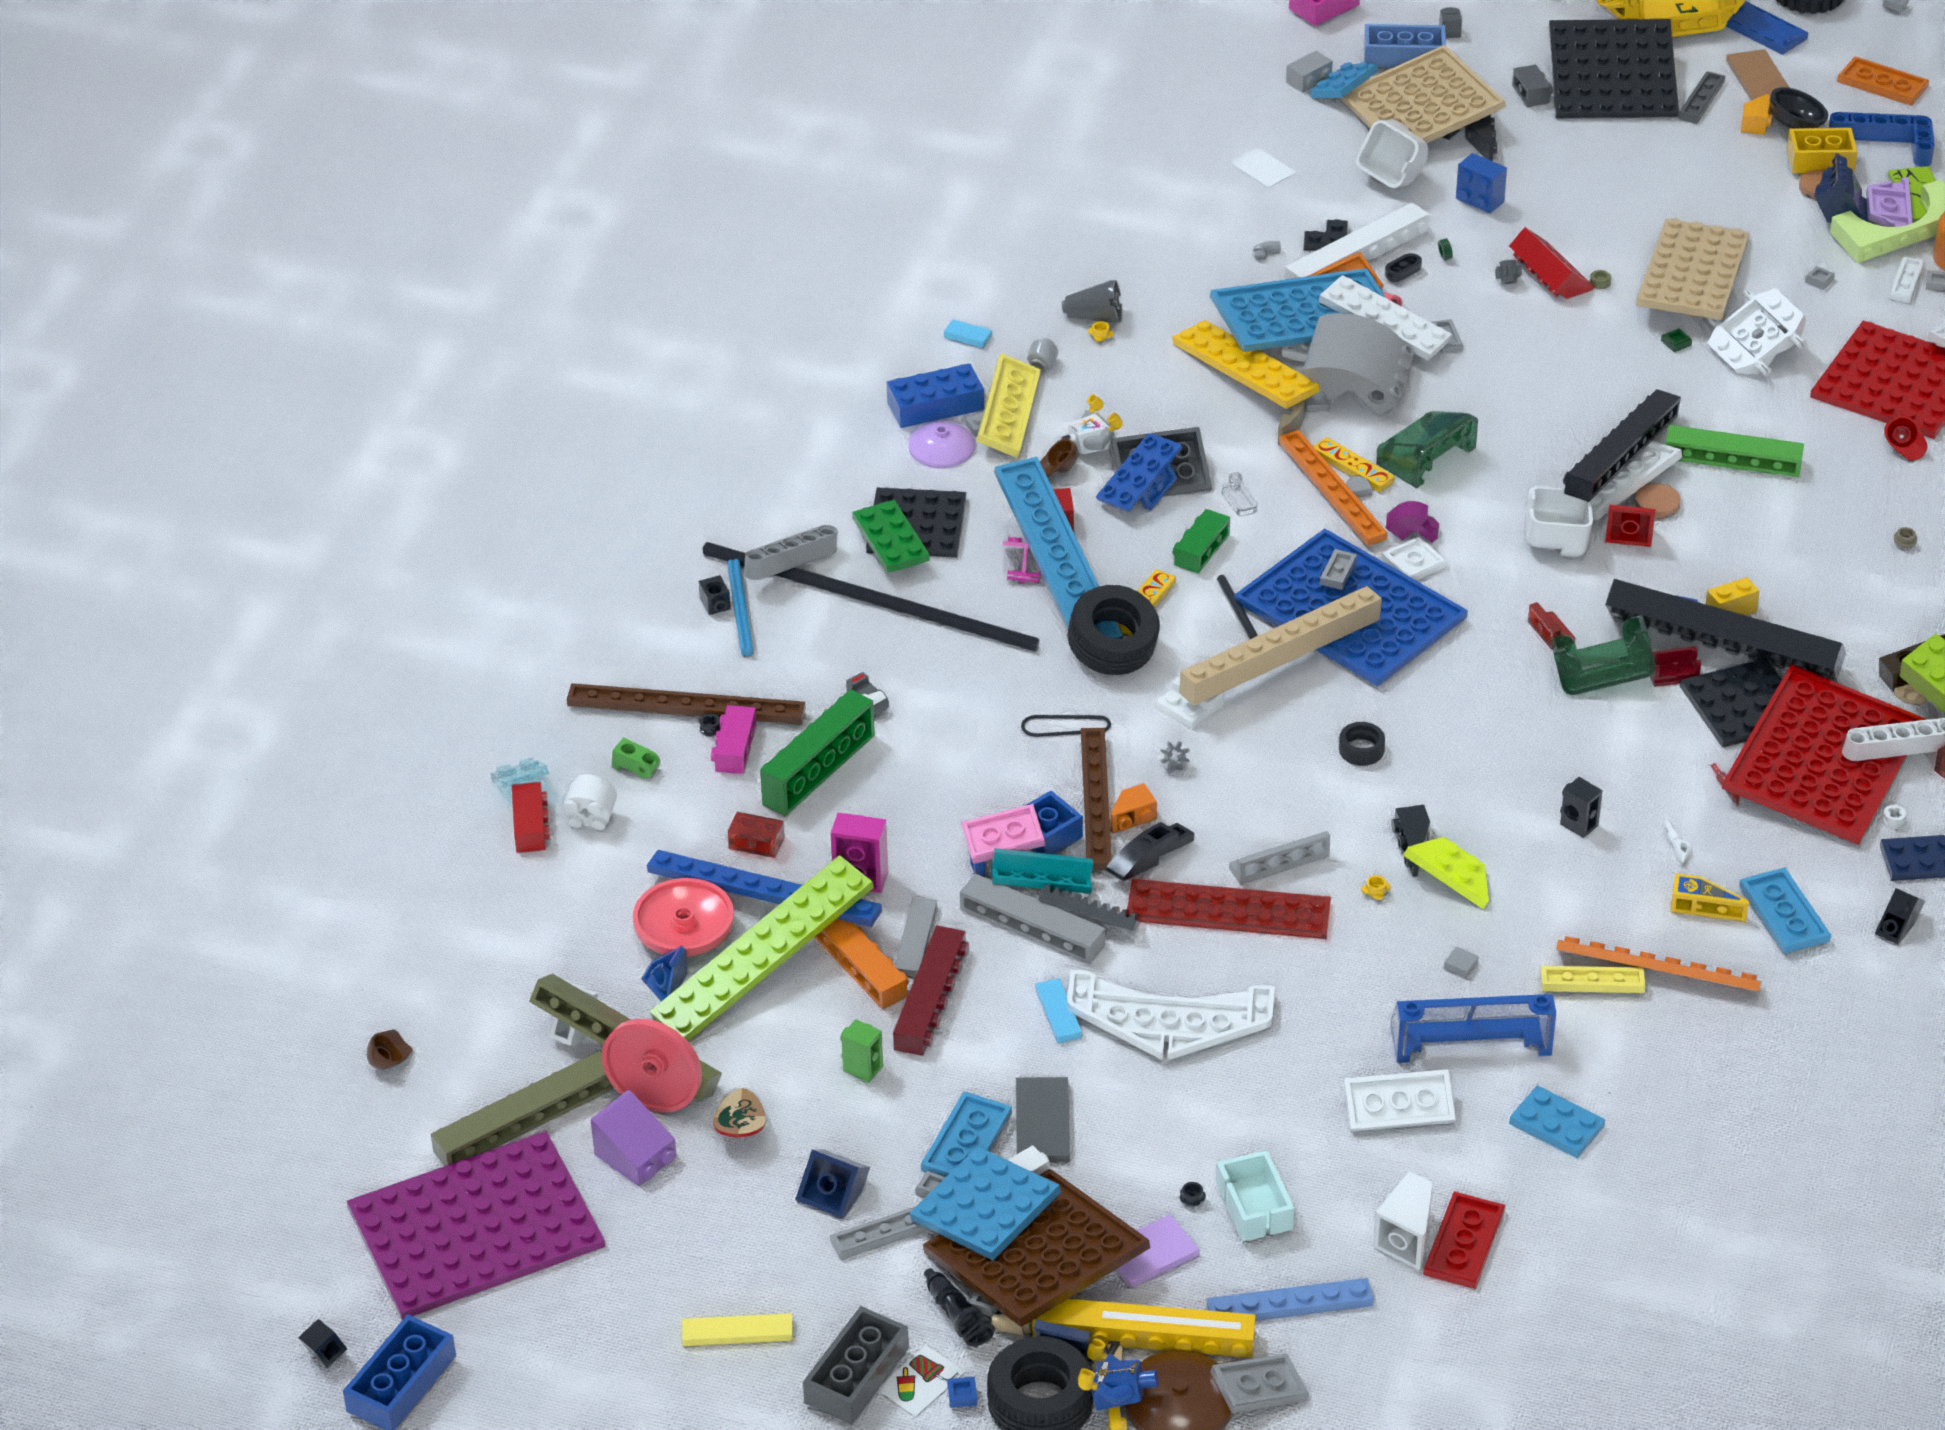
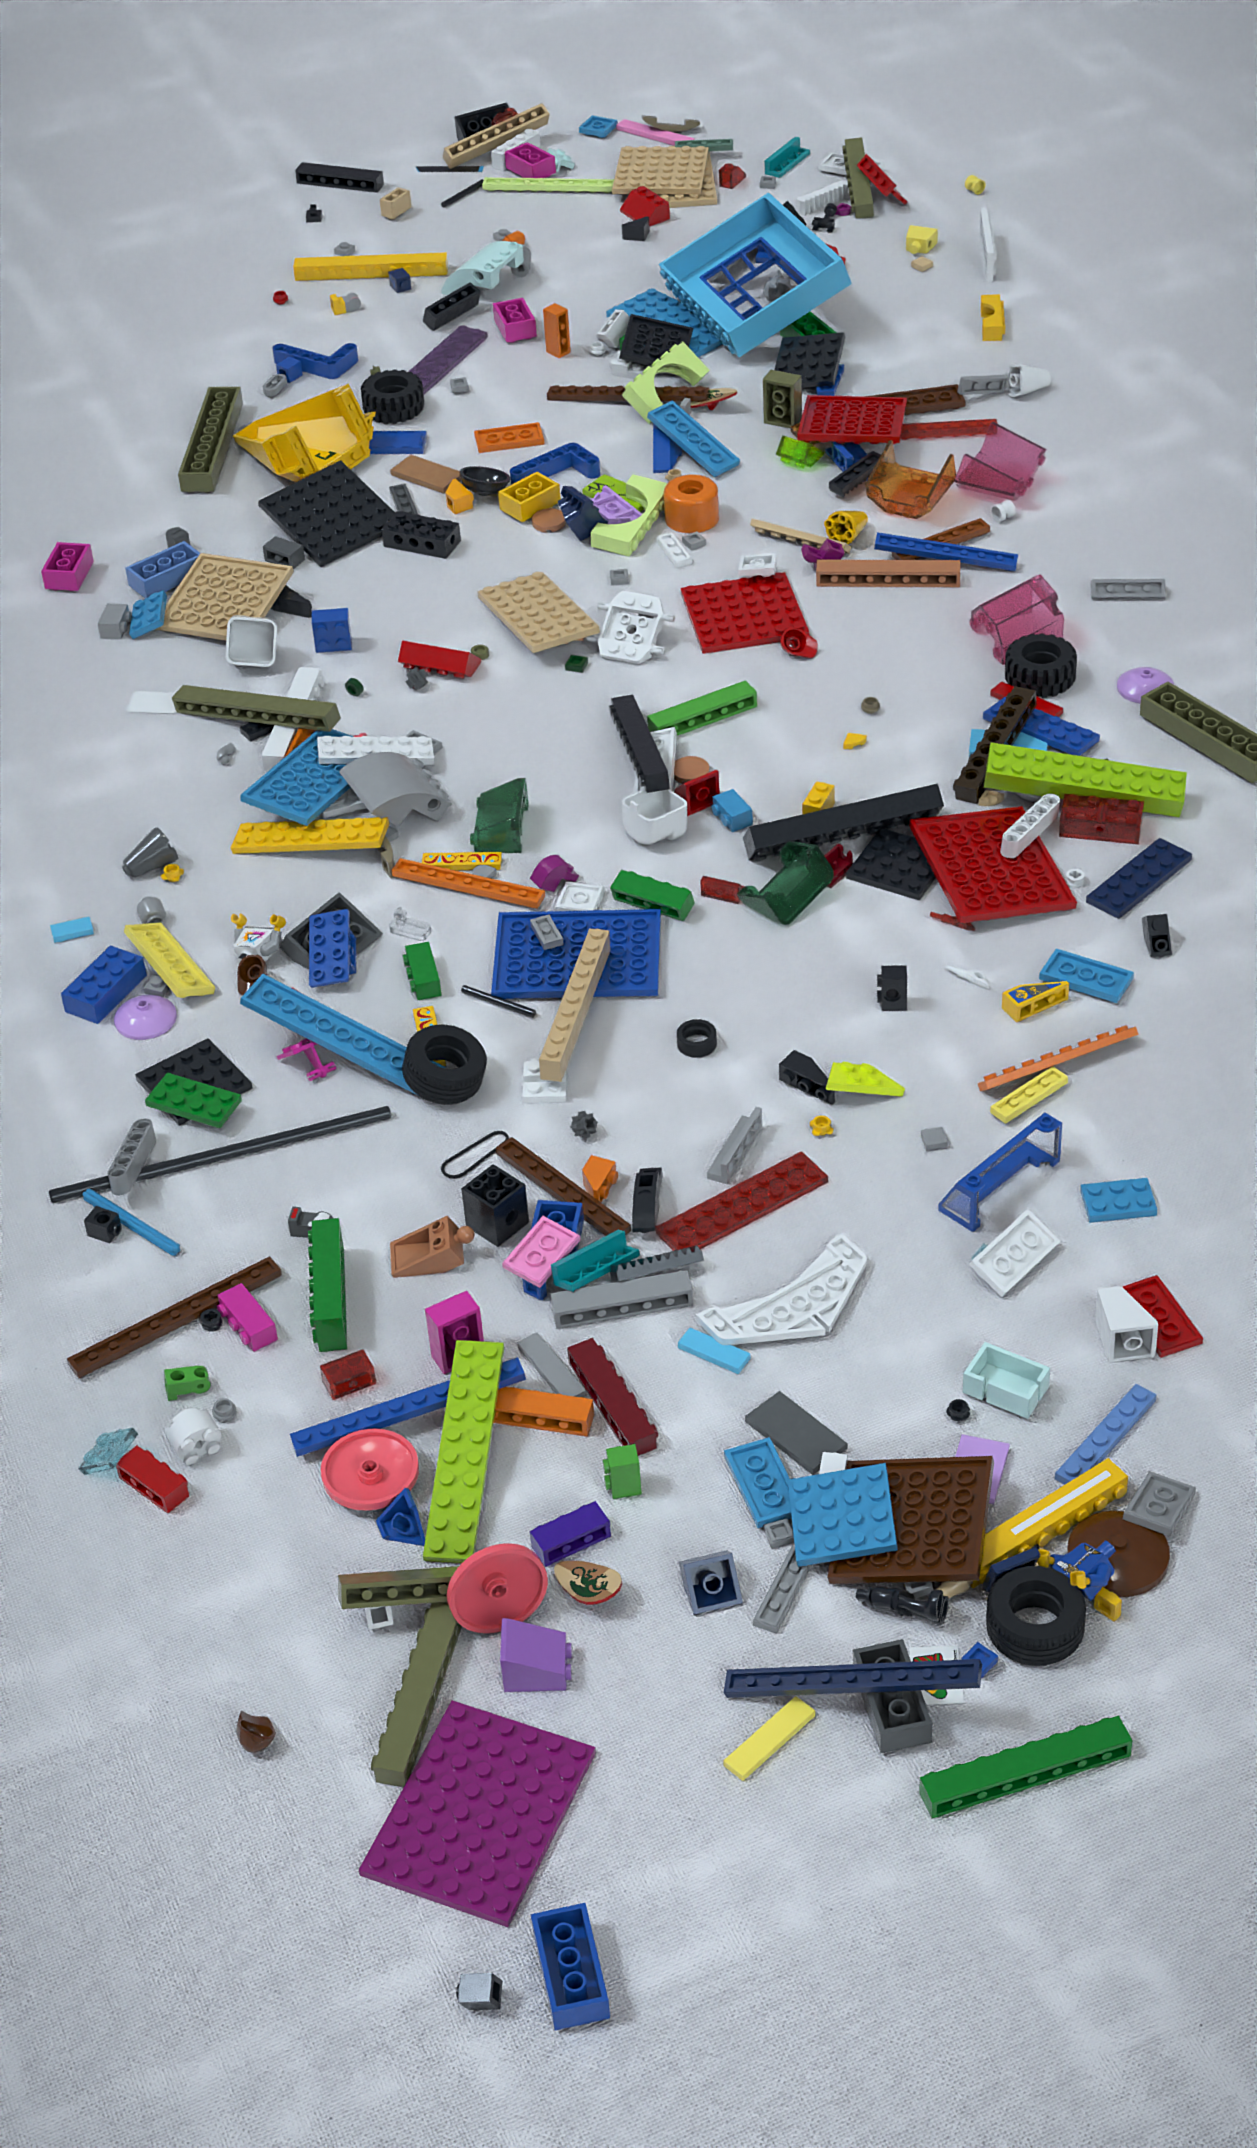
camera: 40 degrees left, 0 degrees up
(639, 800) = (223, 1409): none -> light grey plate
(773, 1071) = (570, 1533): none -> dark purple brick
(830, 1325) = (853, 1678): none -> dark blue plate
(932, 778) = (430, 1249): none -> nougat slope
(1014, 771) = (495, 1205): none -> black brick
(1328, 220) = (256, 708): none -> olive brick
(1403, 267) = (344, 711): black plate -> none
(1475, 593) = (652, 894): none -> green brick
(1644, 560) = (732, 810): none -> dark azure brick
(1676, 134) = (421, 534): none -> black brick
(1847, 561) = (854, 739): none -> yellow tile

